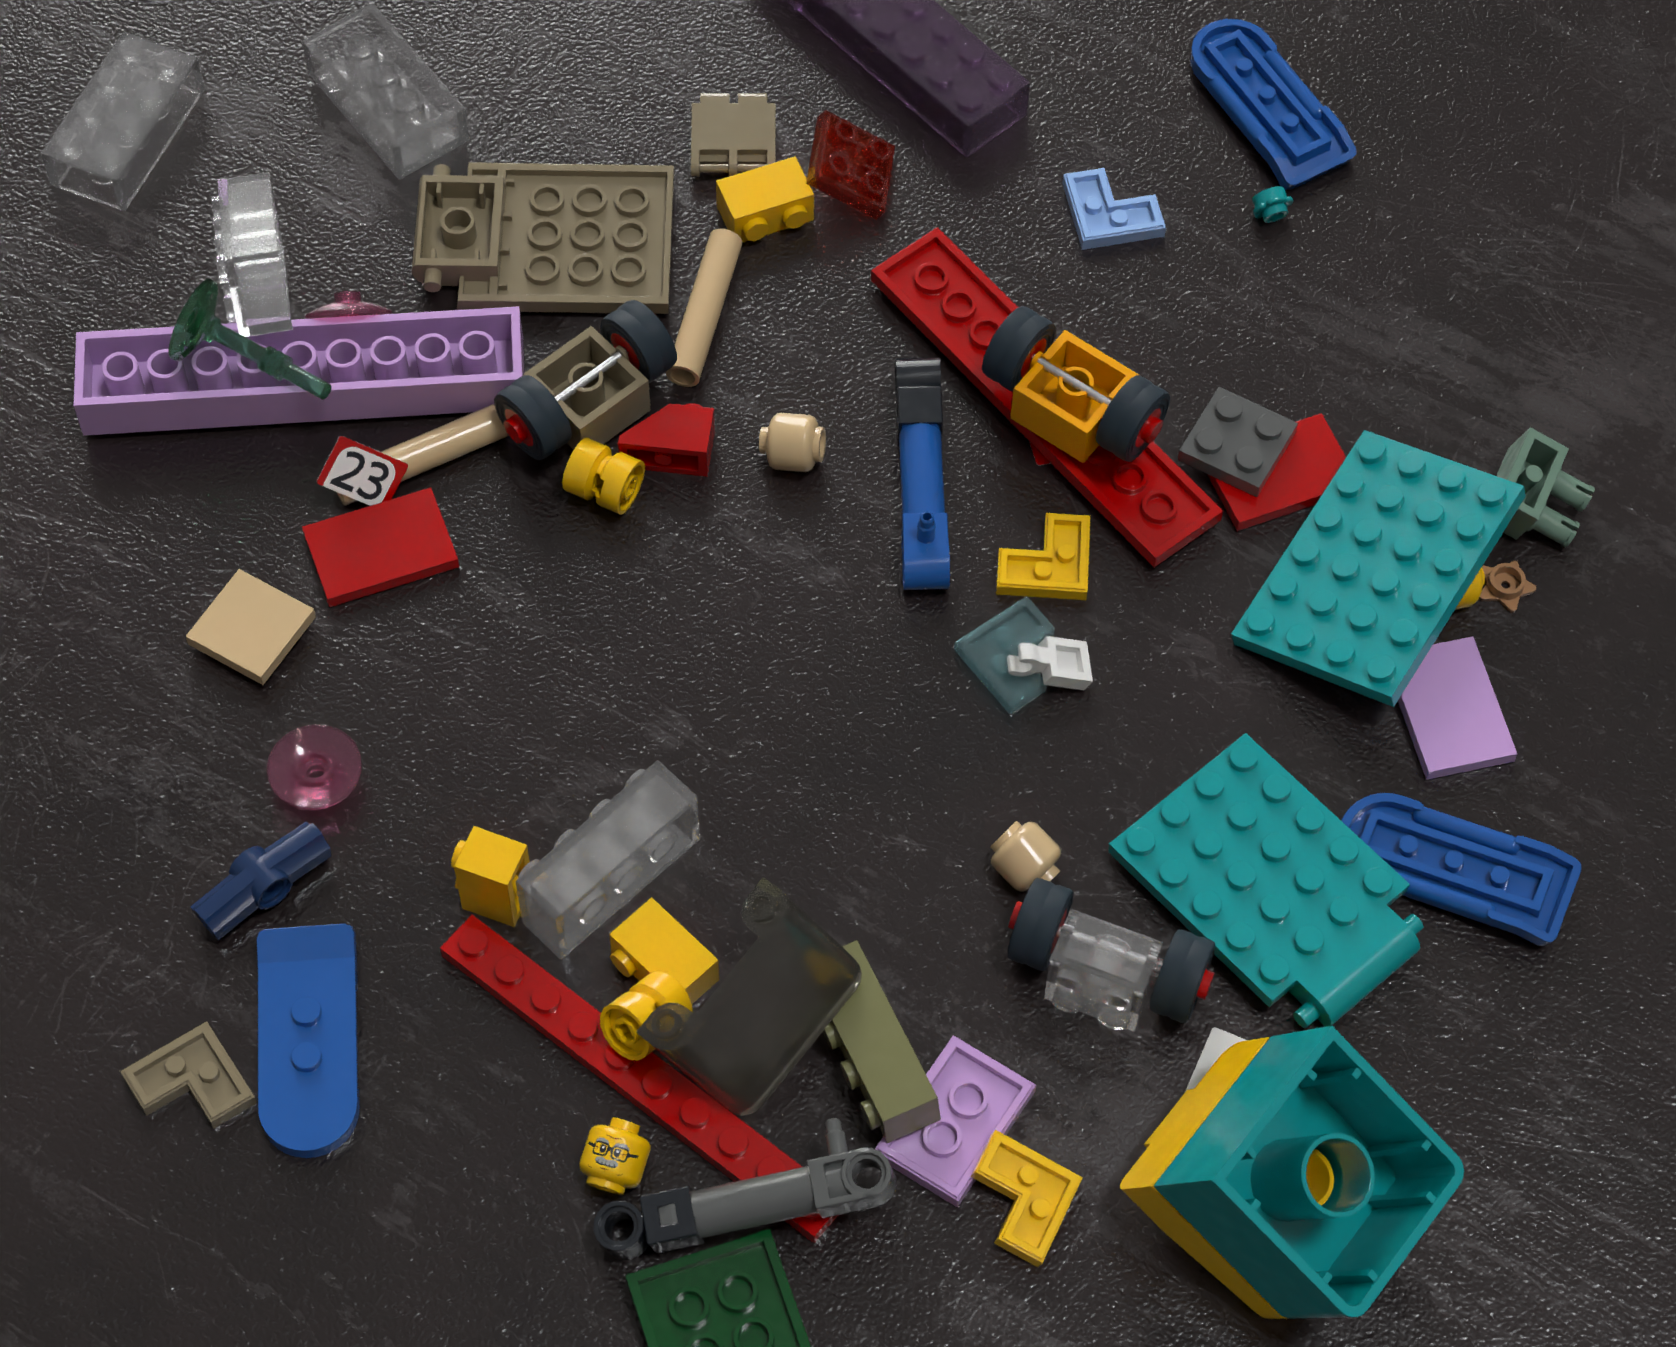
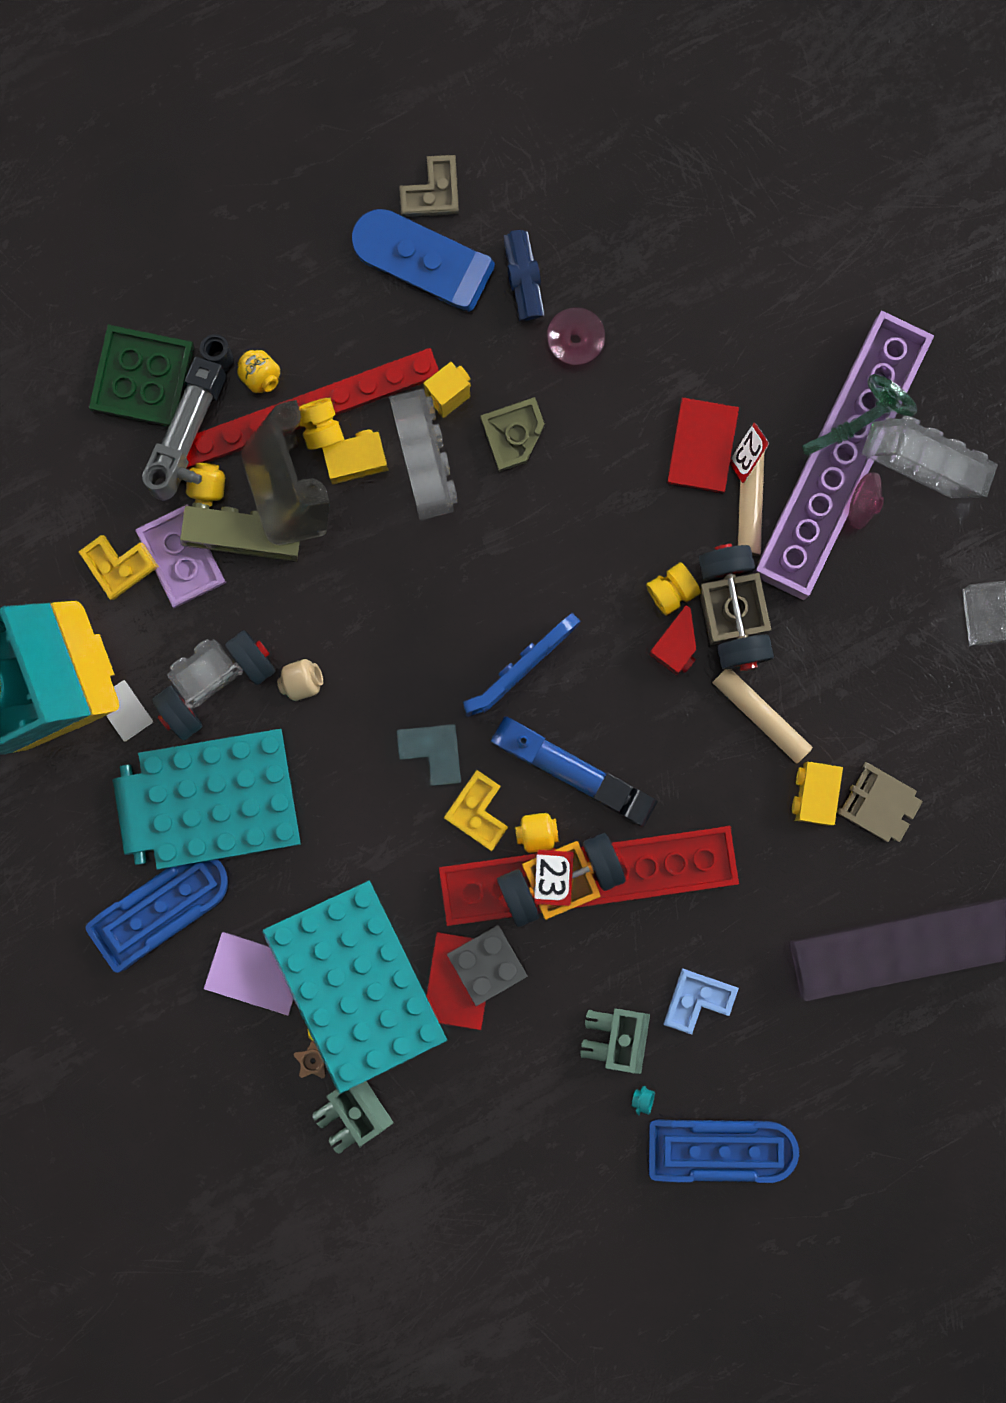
camera: 120 degrees right, 25 degrees up
(250, 626) = (687, 347): tan tile -> none
(502, 778) = (513, 432): none -> olive plate
(547, 236) = (866, 652): dark tan plate -> none
(793, 442) = (634, 709): tan head -> none
(809, 1132) = (211, 486): none -> yellow head
(829, 587) = (514, 673): none -> blue piece
(850, 164) = (814, 859): clear red tile -> none
(1030, 469) = (537, 832): none -> yellow head
(1058, 659) = (405, 771): white plate -> none
(1078, 388) = (554, 877): none -> sticker
(1215, 245) = (626, 1041): none -> sand green brick

